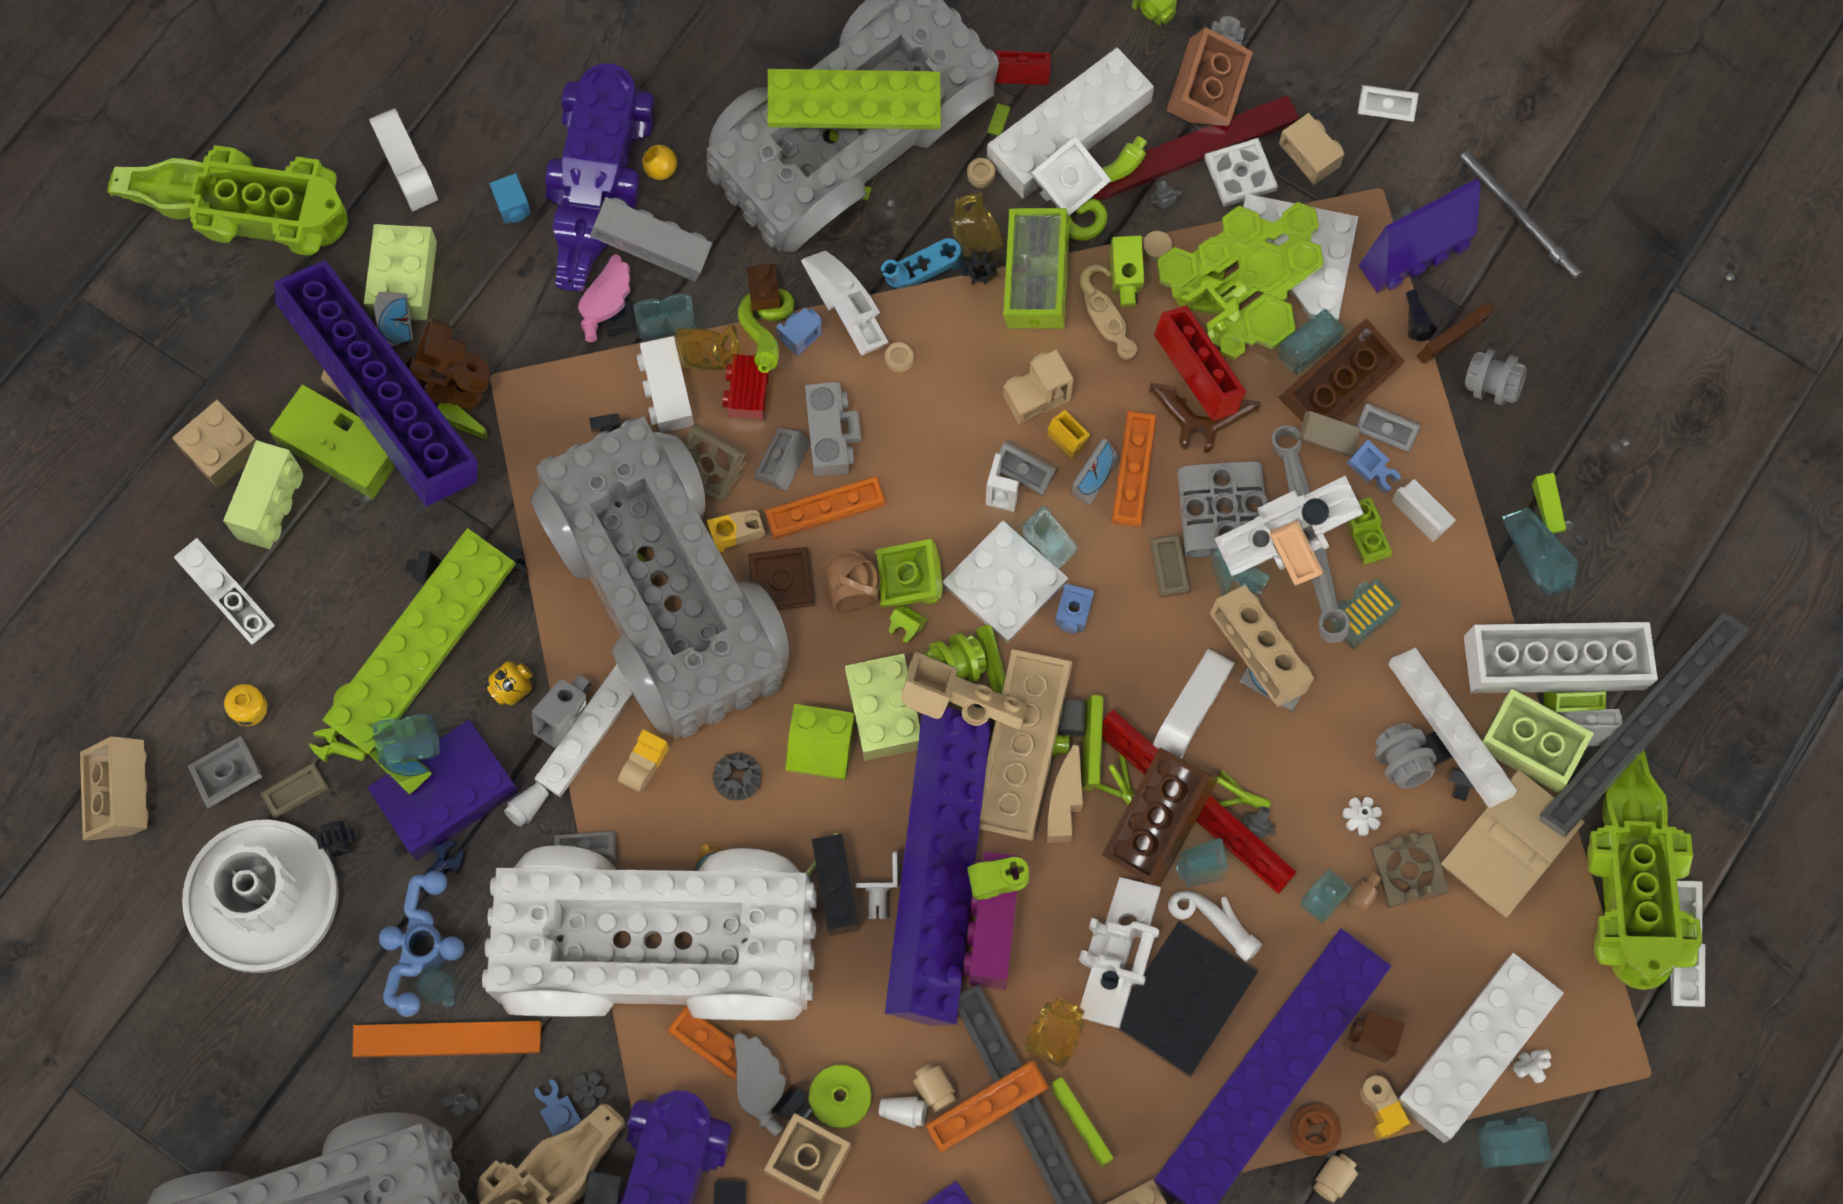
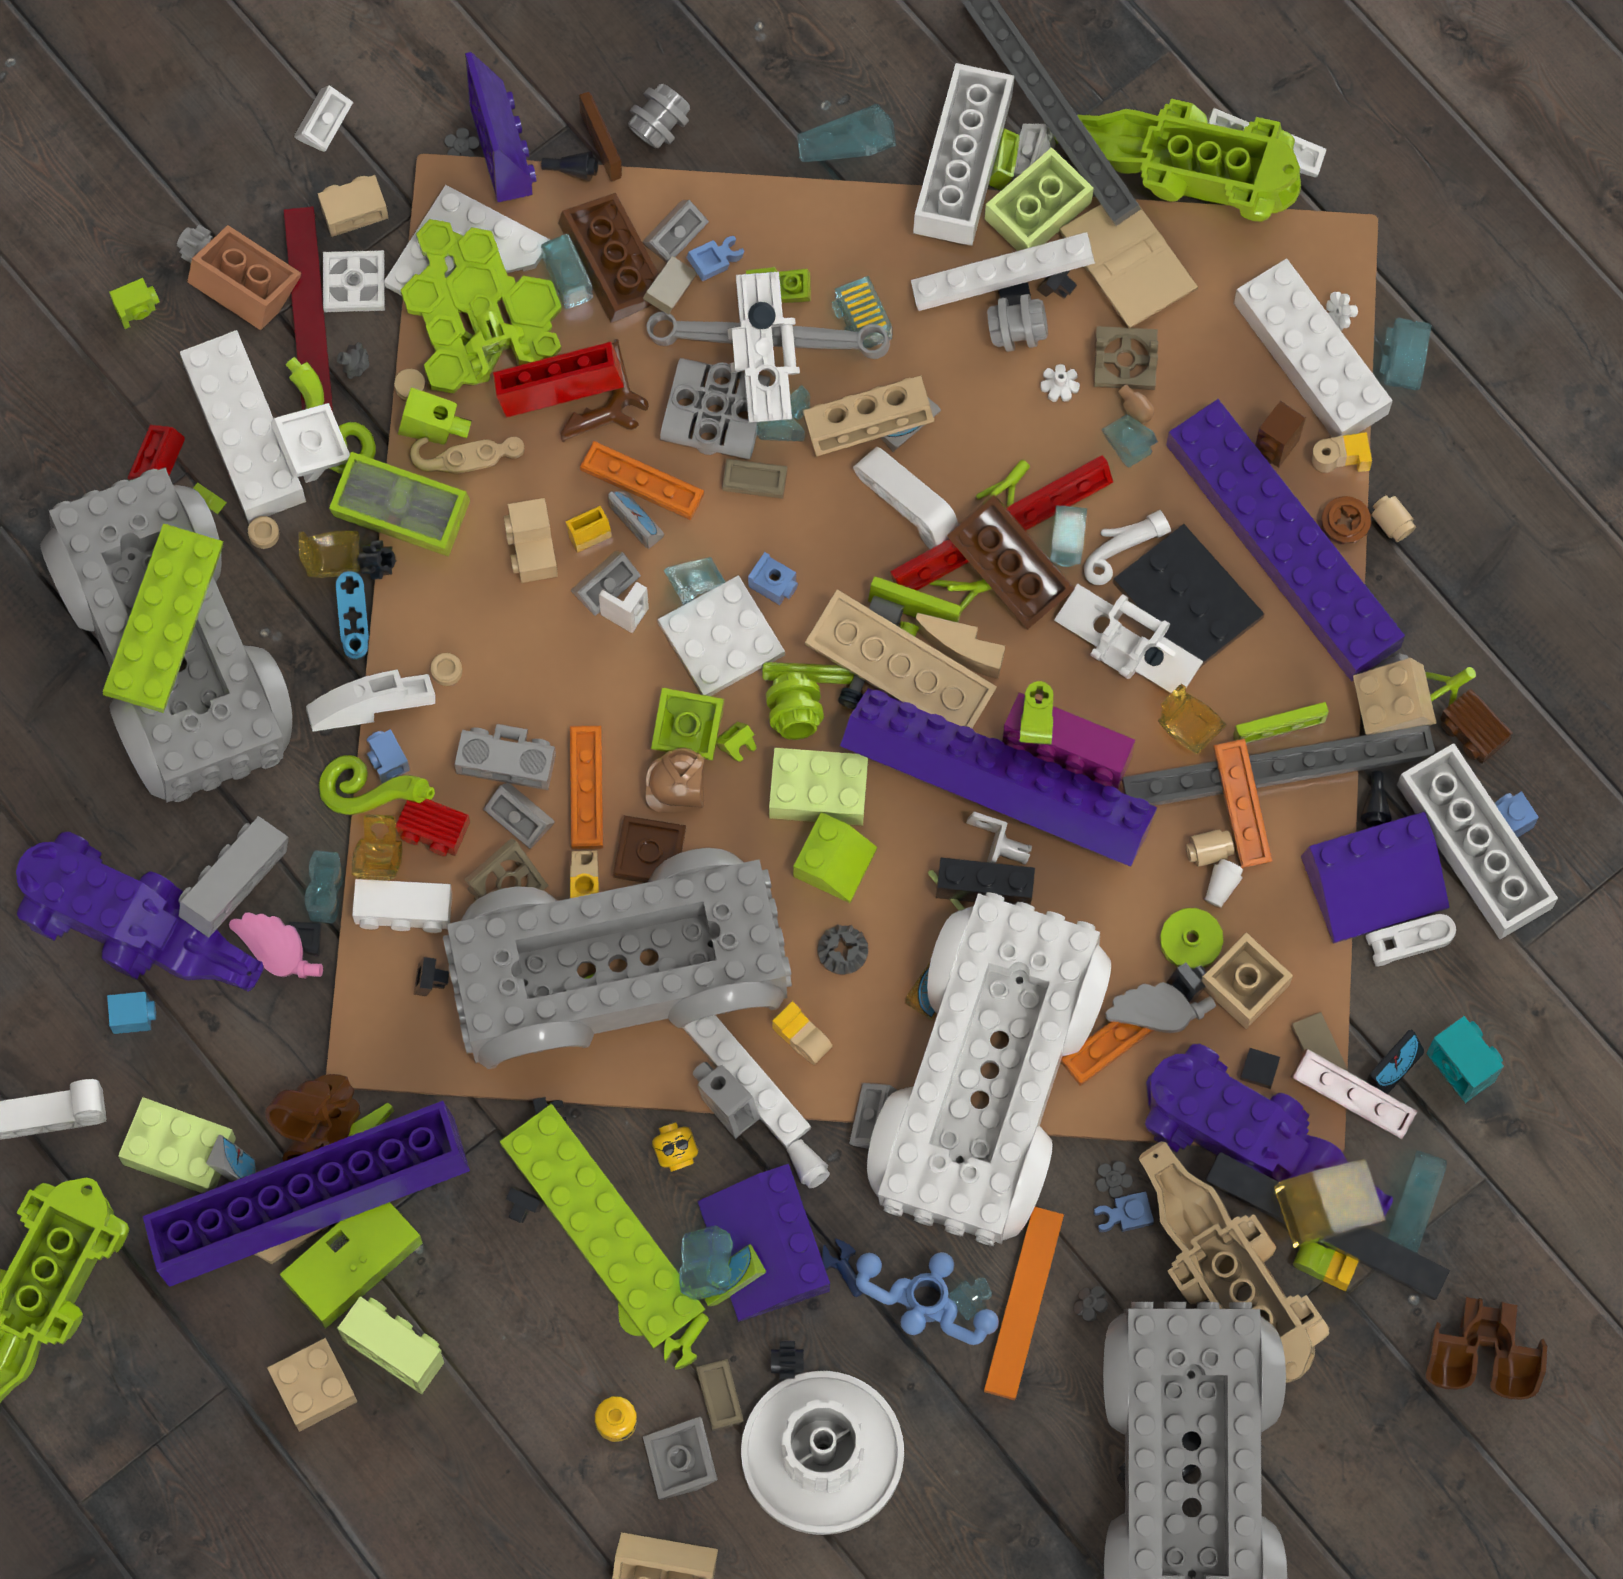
camera: 75 degrees left, 0 degrees up
(224, 591) = (483, 1414): white slope -> none
(659, 162) = (142, 847): yellow piece -> none
(763, 287) = (323, 780): reddish brown plate -> none
(934, 684) = (833, 719): tan plate -> none
(1259, 822) = (1041, 475): dark grey plant -> none
(1296, 552) = (793, 348): light nougat tile -> none
(1423, 510) = (774, 227): white panel -> none
(1549, 502) = (800, 114): lime piece -> none
(1557, 254) = (544, 17): flat silver bar -> none

